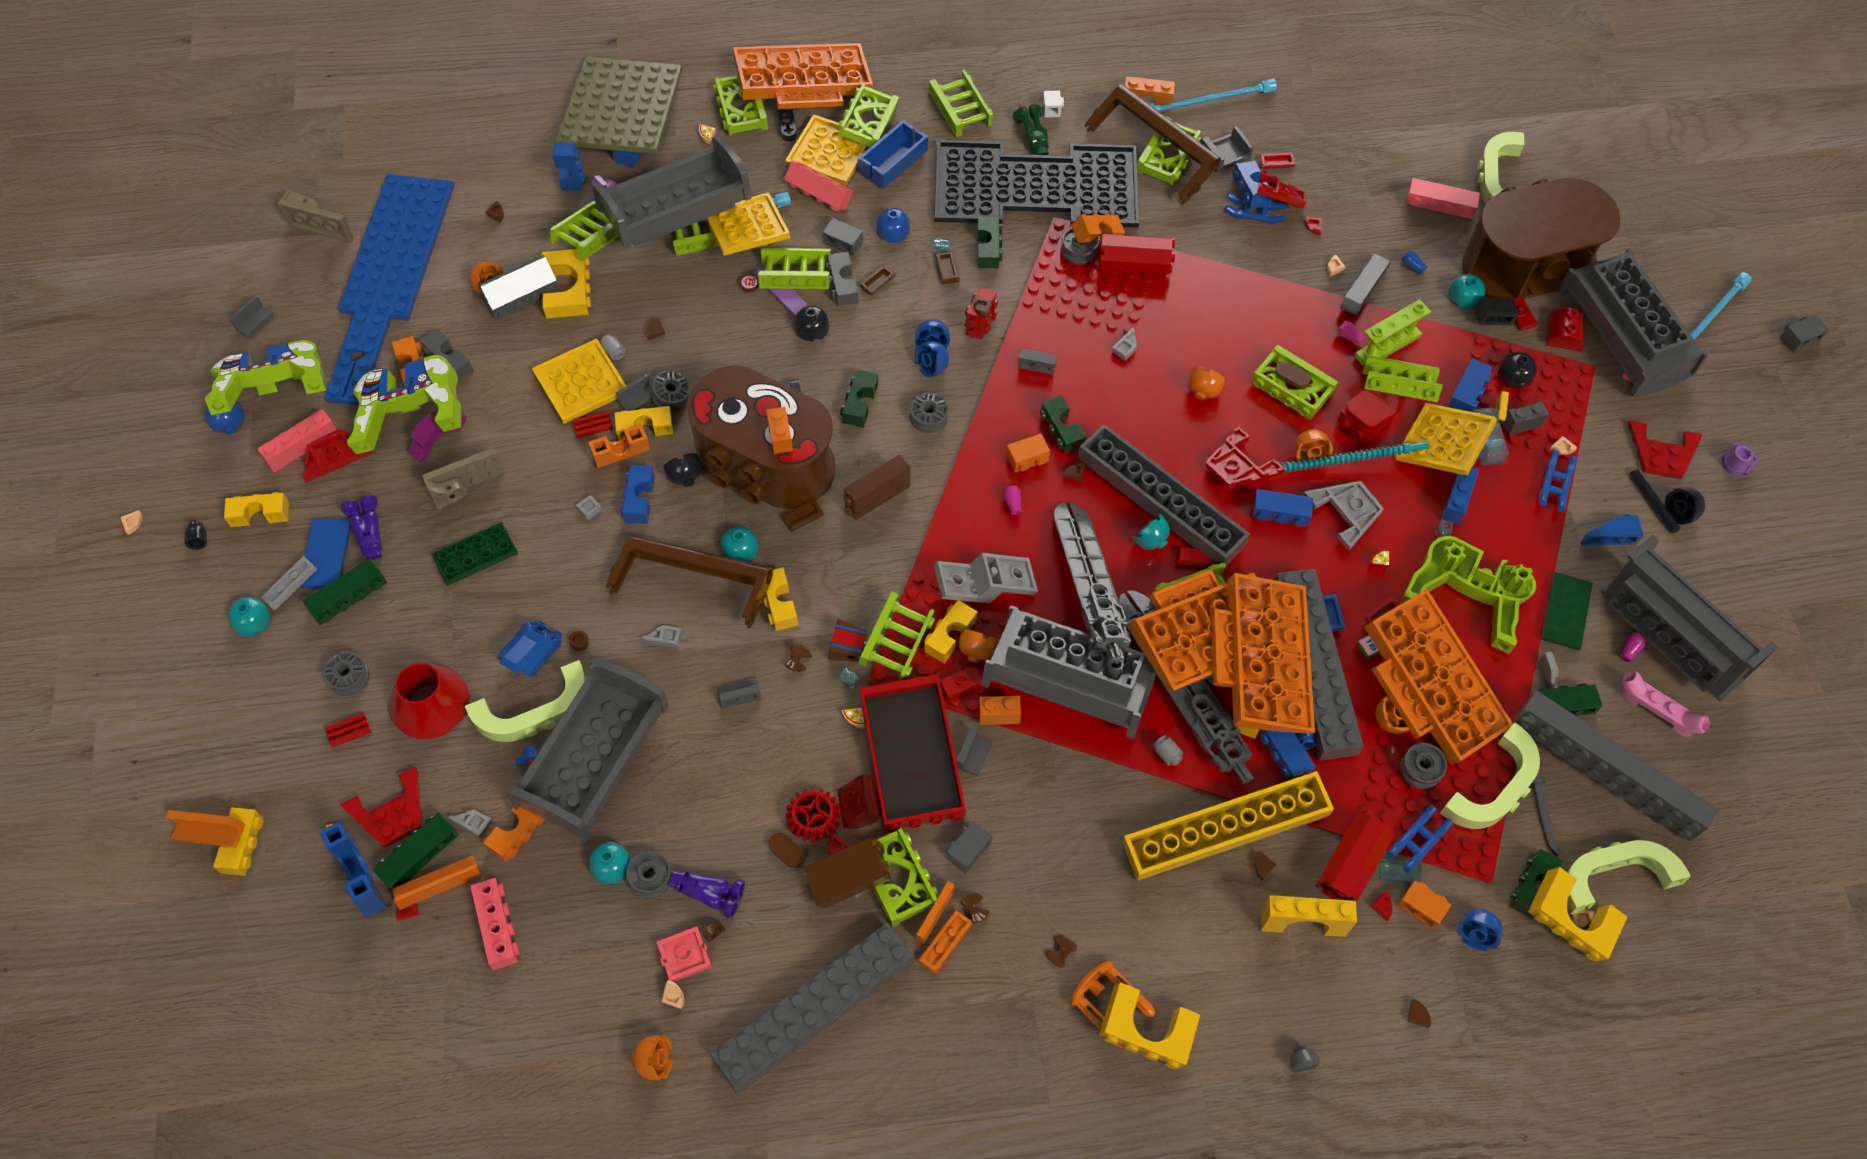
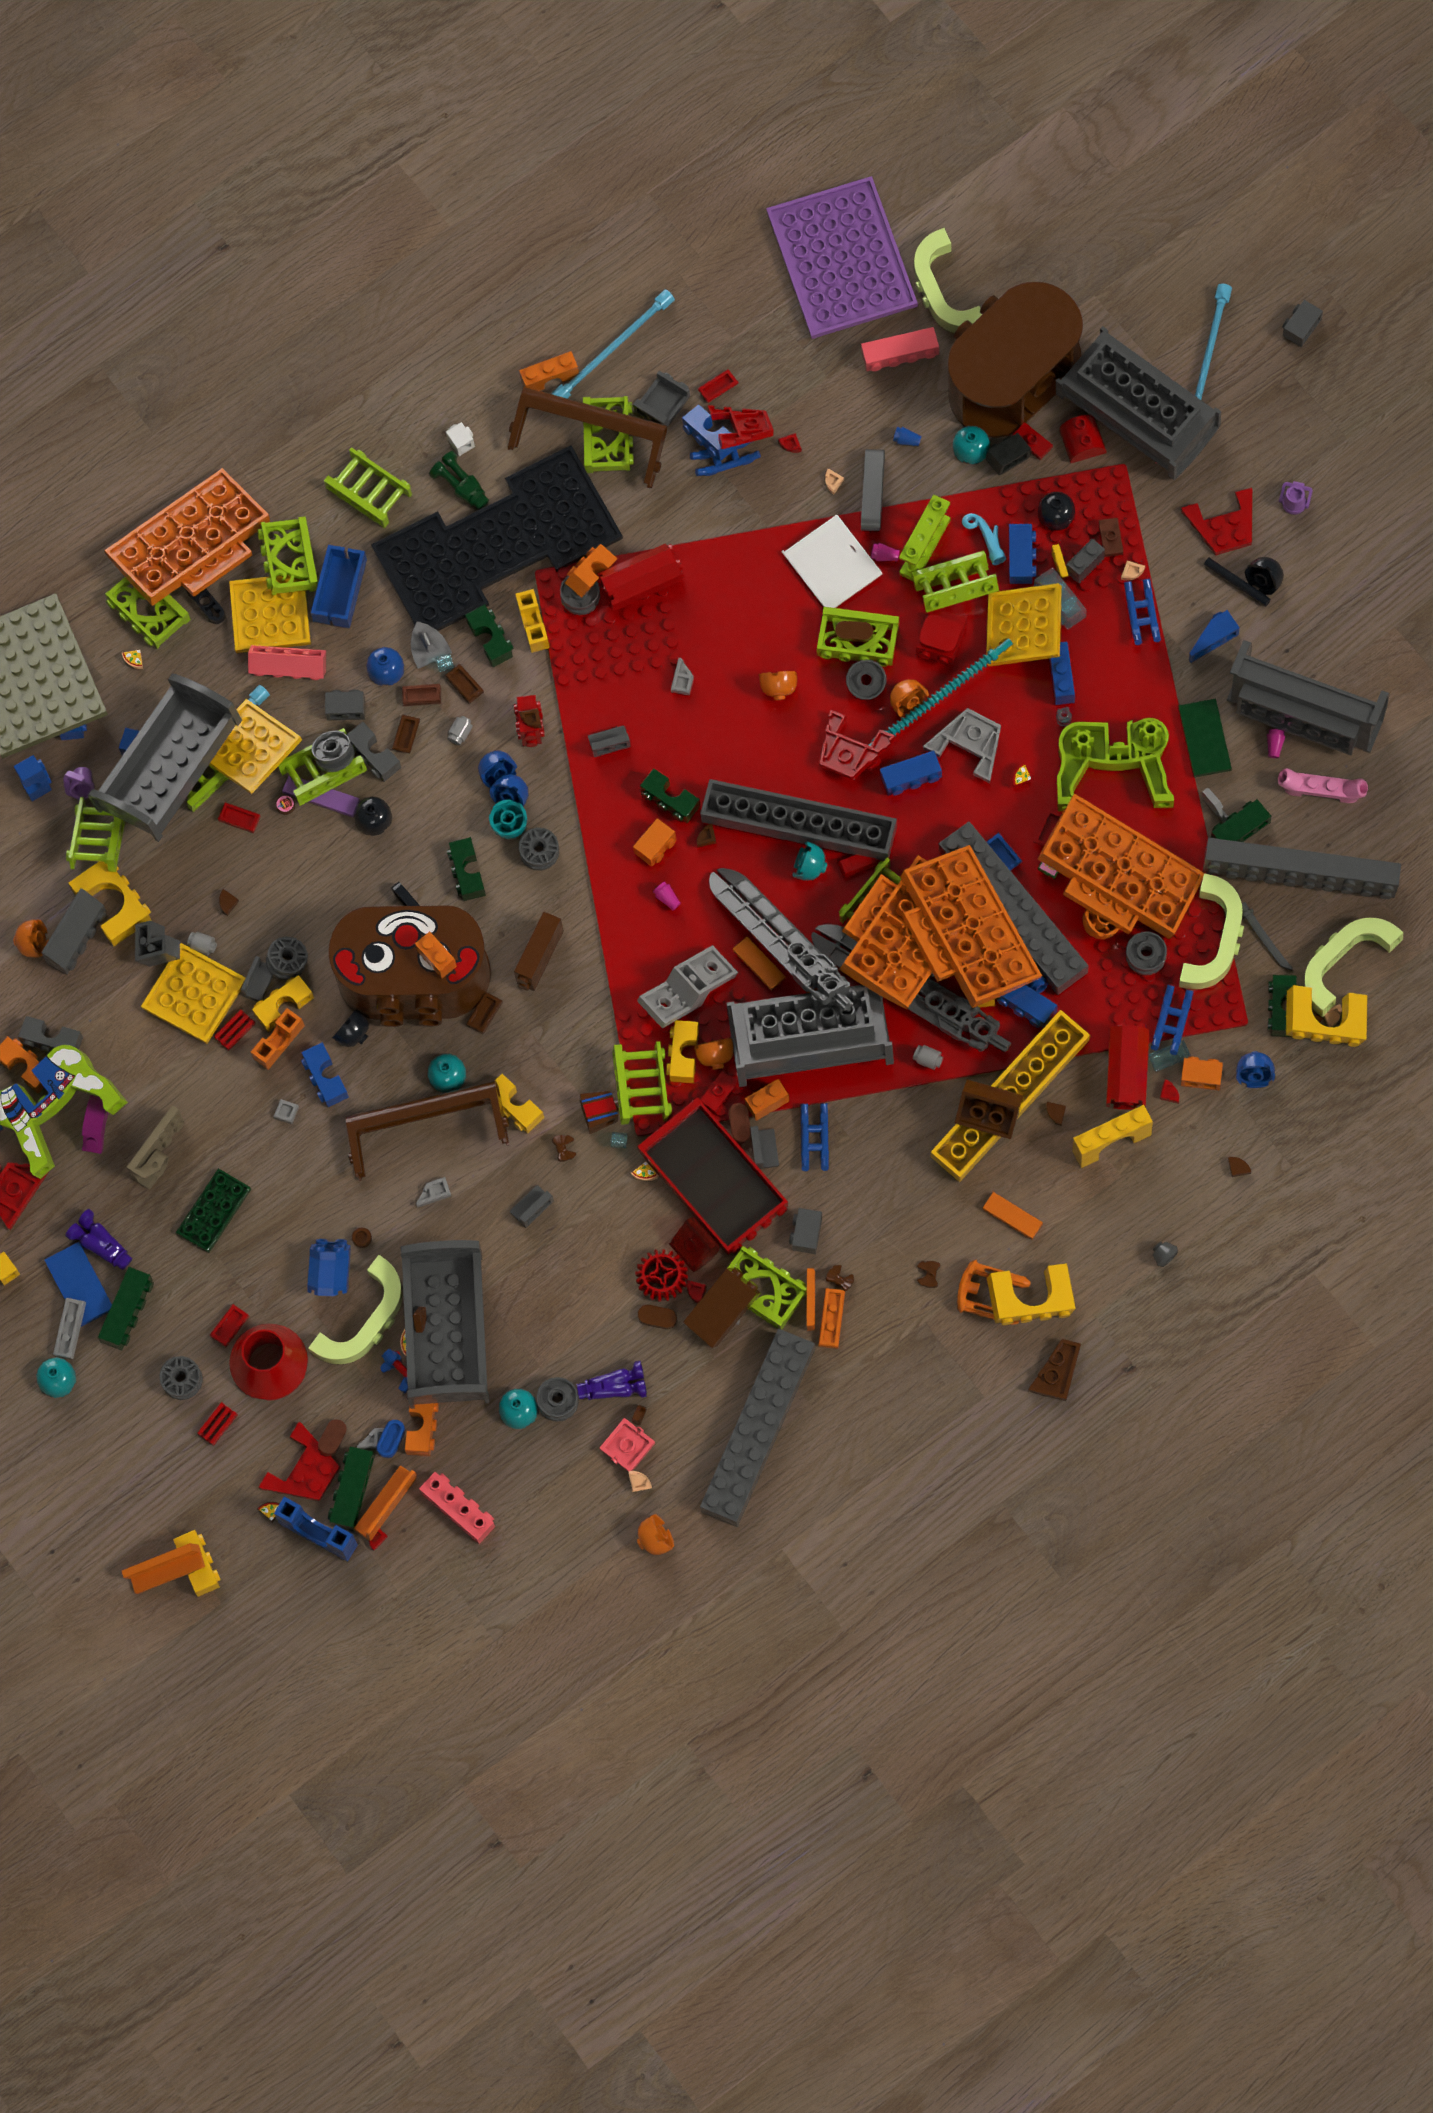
camera: 20 degrees left, 10 degrees up
(419, 652) = (229, 1325): none -> red tile
(432, 796) = (332, 1437): none -> copper tile
(480, 826) = (390, 1438): none -> blue tile
(573, 327) = (153, 946): none -> dark grey brick
(573, 732) = (420, 1319): none -> reddish brown tile
(707, 275) = (239, 817): none -> red tile
(809, 257) = (333, 751): none -> dark grey wheel
(908, 259) = (421, 694): none -> copper tile
(917, 376) = (508, 819): none -> teal cylinder
(921, 296) = (459, 730): none -> light grey brick
(935, 224) = (427, 644): none -> flat silver shield
(964, 718) = (739, 1122): none -> copper tile
(1022, 756) = (806, 1129): none -> blue piece
(1029, 248) = (532, 620): none -> yellow arch
(1061, 594) = (759, 963): none -> orange tile
(1134, 1121) = (1058, 1372): none -> reddish brown wing
(1171, 940) = (1012, 1215): none -> orange tile
(1201, 825) = (988, 1109): none -> reddish brown slope
(1279, 405) = (855, 684): none -> dark grey wheel
(1300, 320) = (830, 564): none -> white piece
(1427, 120) = (841, 257): none -> medium lavender plate
(1447, 378) = (996, 553): none -> medium azure plant
(1557, 412) = (1111, 537): none -> copper plate

